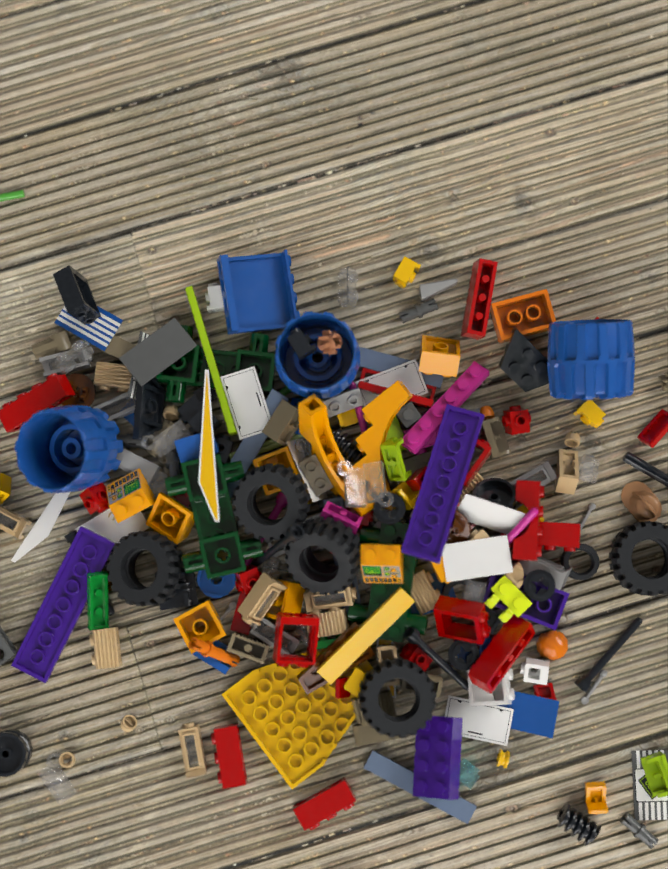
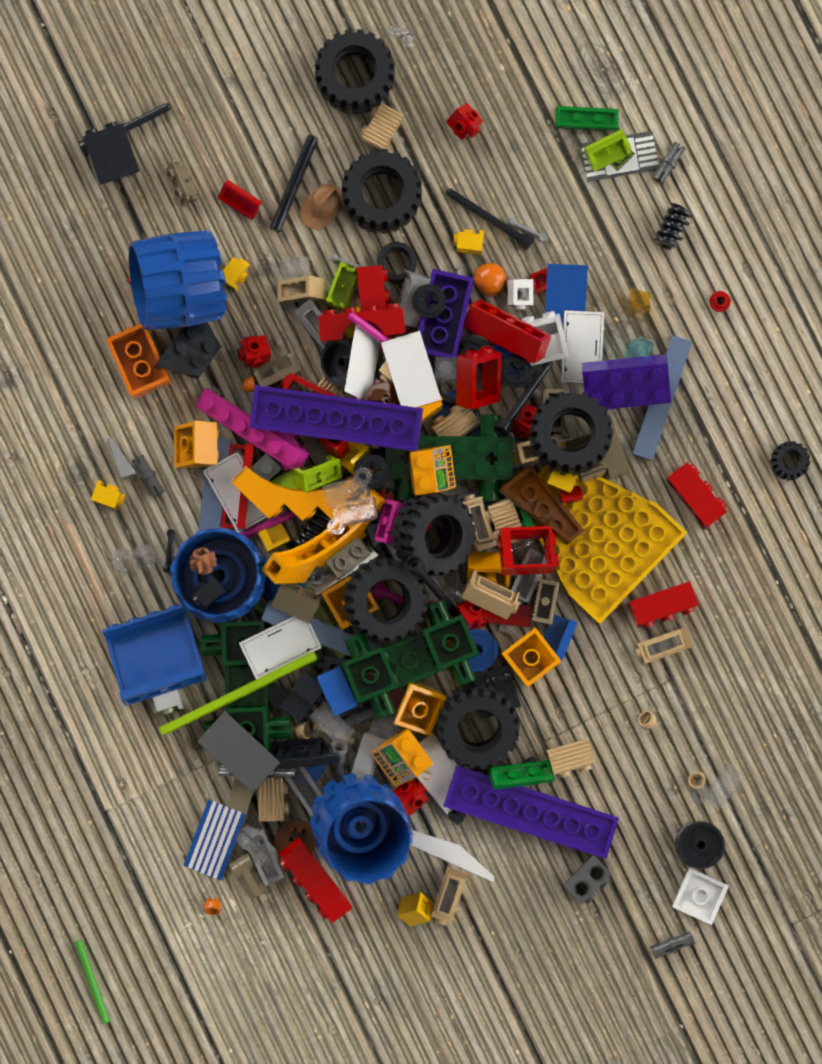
camera: 105 degrees left, 0 degrees up
(31, 311) = (212, 907): none -> orange hinge
(76, 295) = (188, 854): black window -> none
(207, 466) = (357, 673): yellow sticker -> none
(208, 649) = (553, 642): orange pin -> none
(343, 402) = (262, 539): light grey hinge -> none
(364, 323) = (170, 533): none -> black hinge
(365, 635) = (511, 477): yellow tile -> none
(479, 299) = (126, 410): red brick -> none
(501, 850) = (713, 301): none -> red plate
(503, 758) = (618, 314): yellow bush -> none
(511, 596) = (446, 329): neon yellow plate -> none
(512, 780) = (638, 302): none -> clear yellow panel
(517, 575) = (423, 325): tan tile -> none
(564, 508) = (342, 287): none -> lime hinge
(572, 440) = (266, 288): tan hinge -> none
(590, 631) = (469, 242): none -> yellow brick
(596, 797) = (642, 212): light orange bracket -> none

